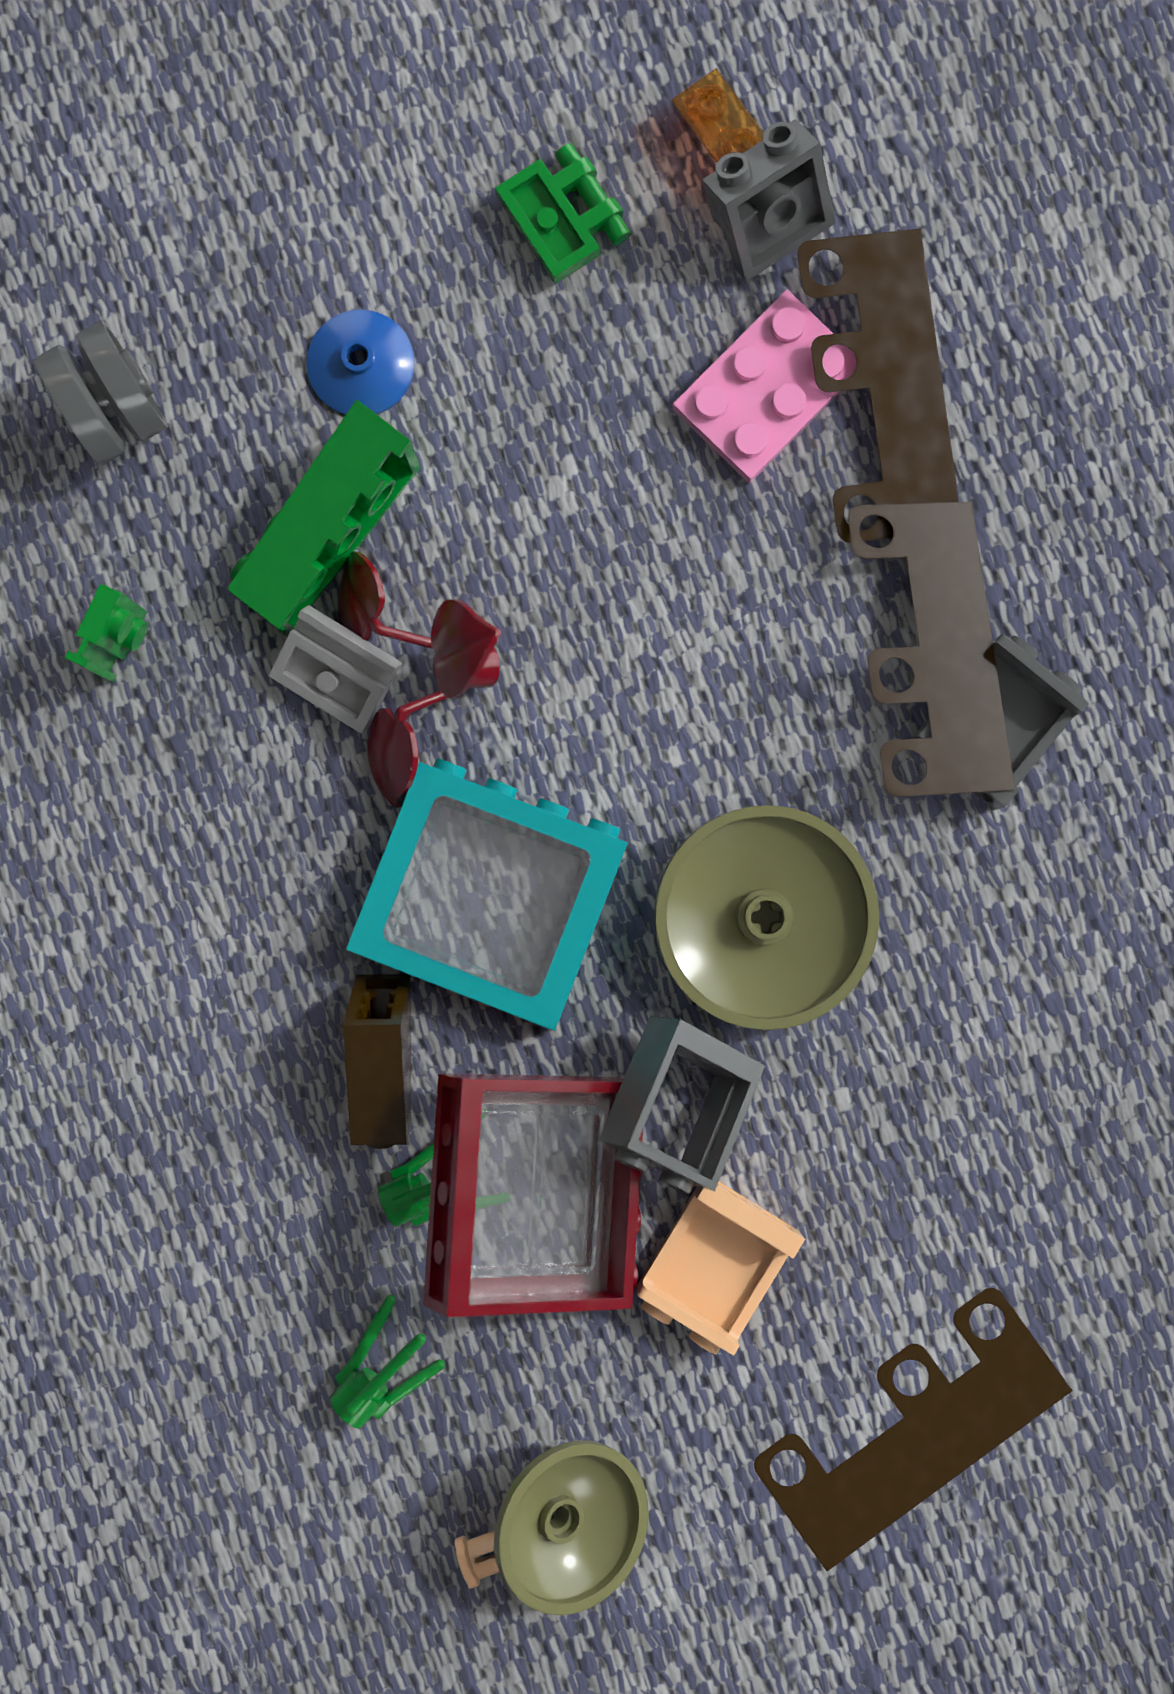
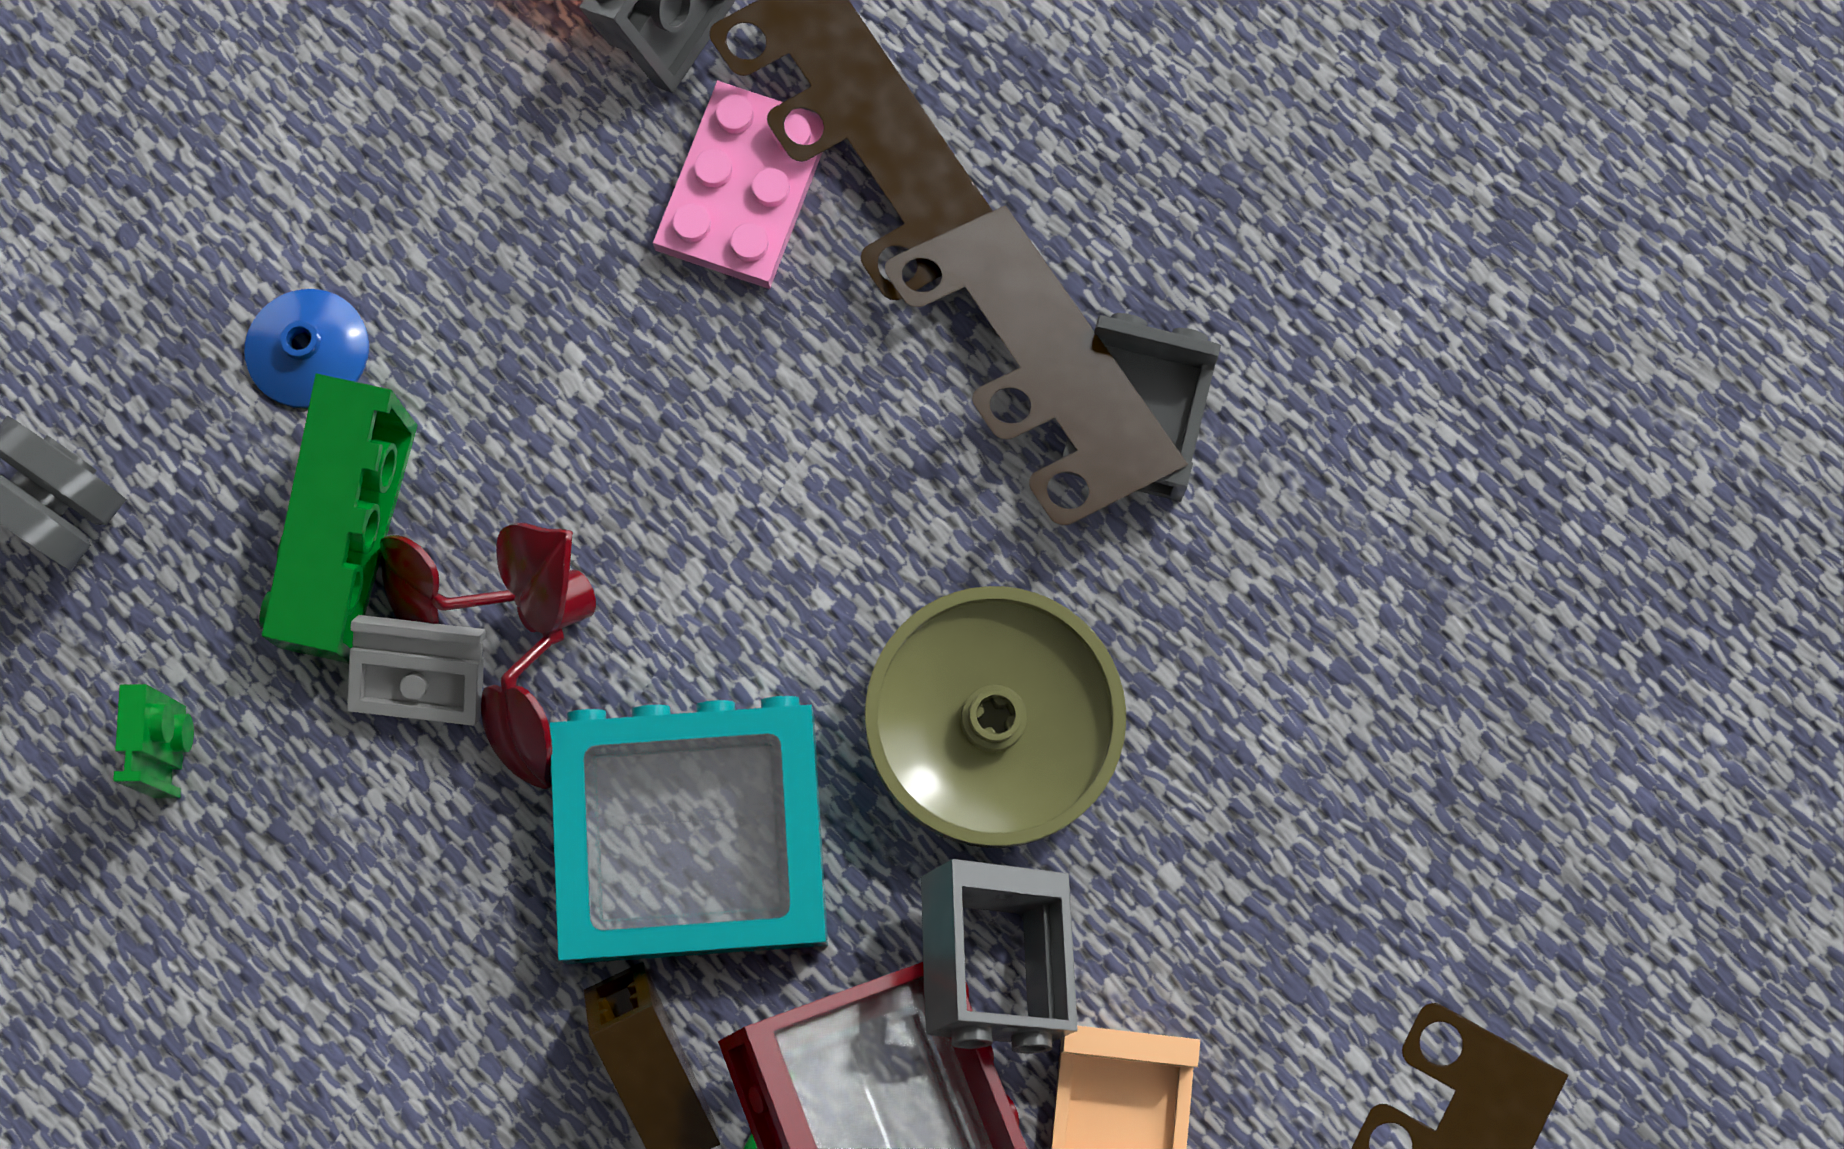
camera: 30 degrees left, 10 degrees down
(550, 222) = (441, 120): green plate -> none

